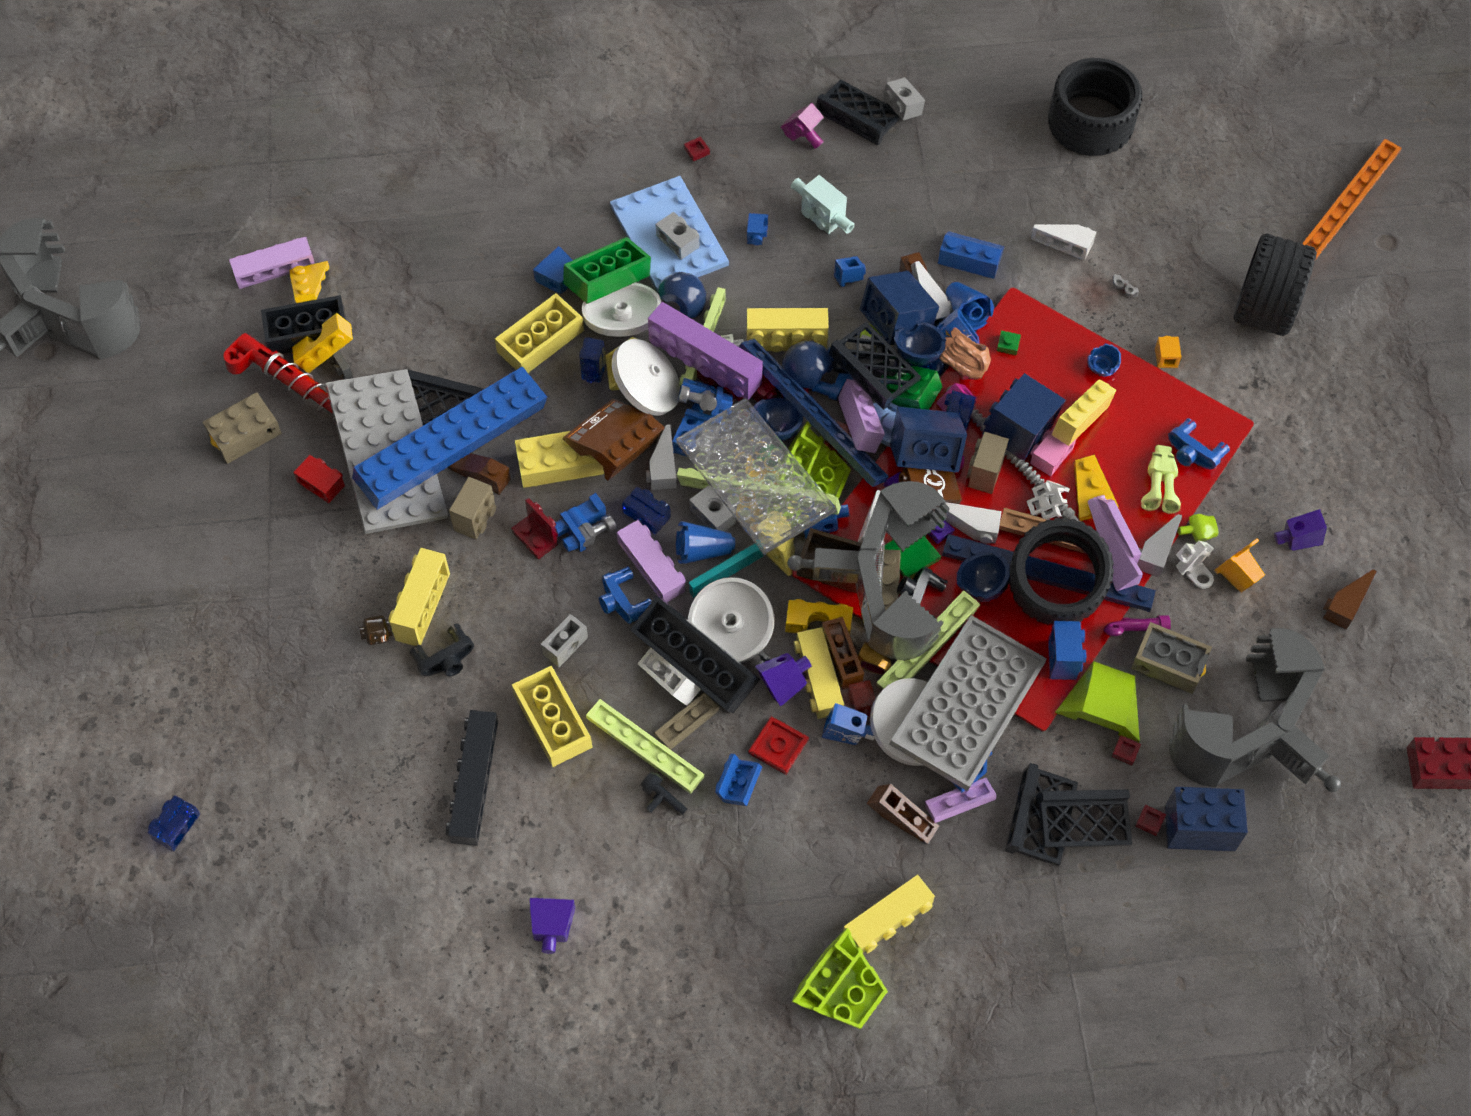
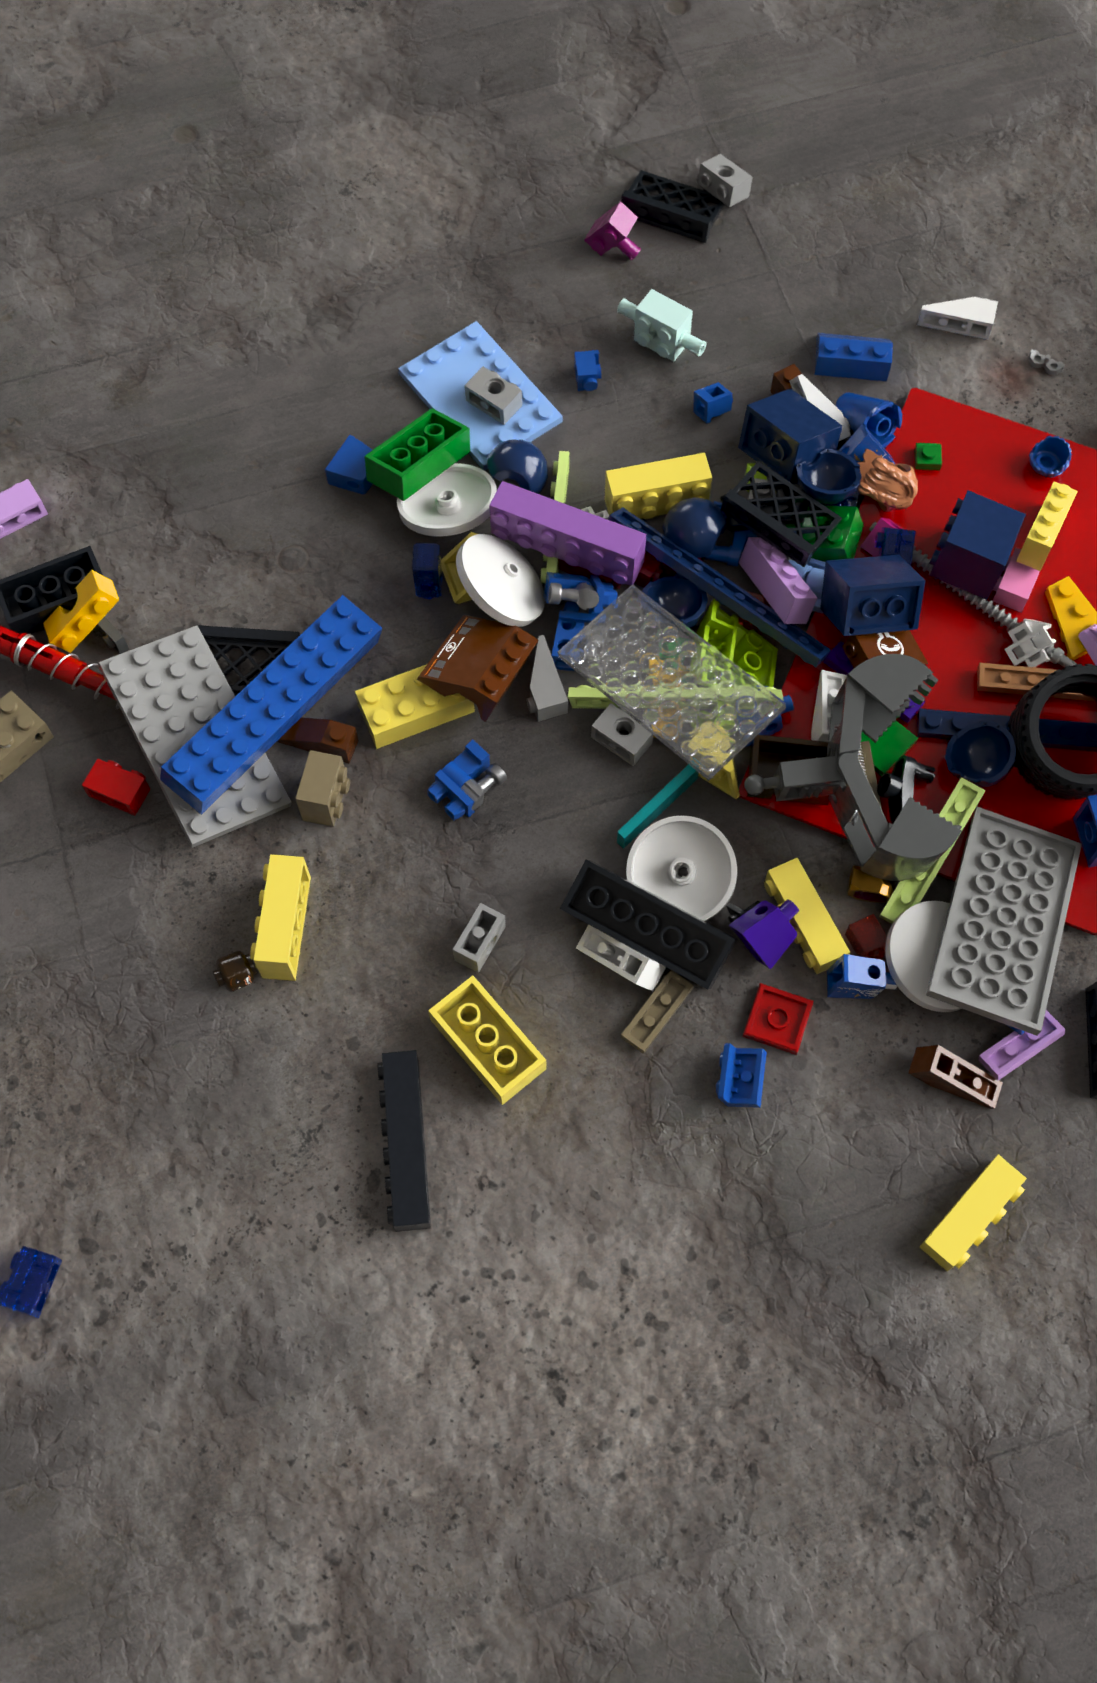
camera: 10 degrees left, 5 degrees up
(307, 280) = (43, 535): yellow wing -> none
(448, 658) = (335, 991): black connector -> none
(536, 530) = (408, 801): dark red bracket -> none
(539, 334) = (352, 549): light yellow brick -> none
(551, 921) = (551, 1312): dark purple torso -> none
(616, 600) = (530, 871): blue connector -> none
(645, 746) = (613, 1054): yellowish green plate -> none
(648, 510) = (540, 748): clear blue brick -> none
(650, 561) = (562, 813): lavender brick -> none
(652, 784) = (635, 1102): black piece -> none
(696, 149) = (488, 284): dark red plate -> none
(702, 543) = (618, 778): blue cone -> none
(802, 613) = (810, 841): yellow arch -> none
(842, 652) = (832, 885): reddish brown slope -> none
(842, 984) = (938, 1317): lime wedge -> none
(975, 522) = (957, 688): white slope -> none
(986, 462) = (947, 610): dark tan brick -> none
(1098, 79) = (960, 117): black tyre -> none

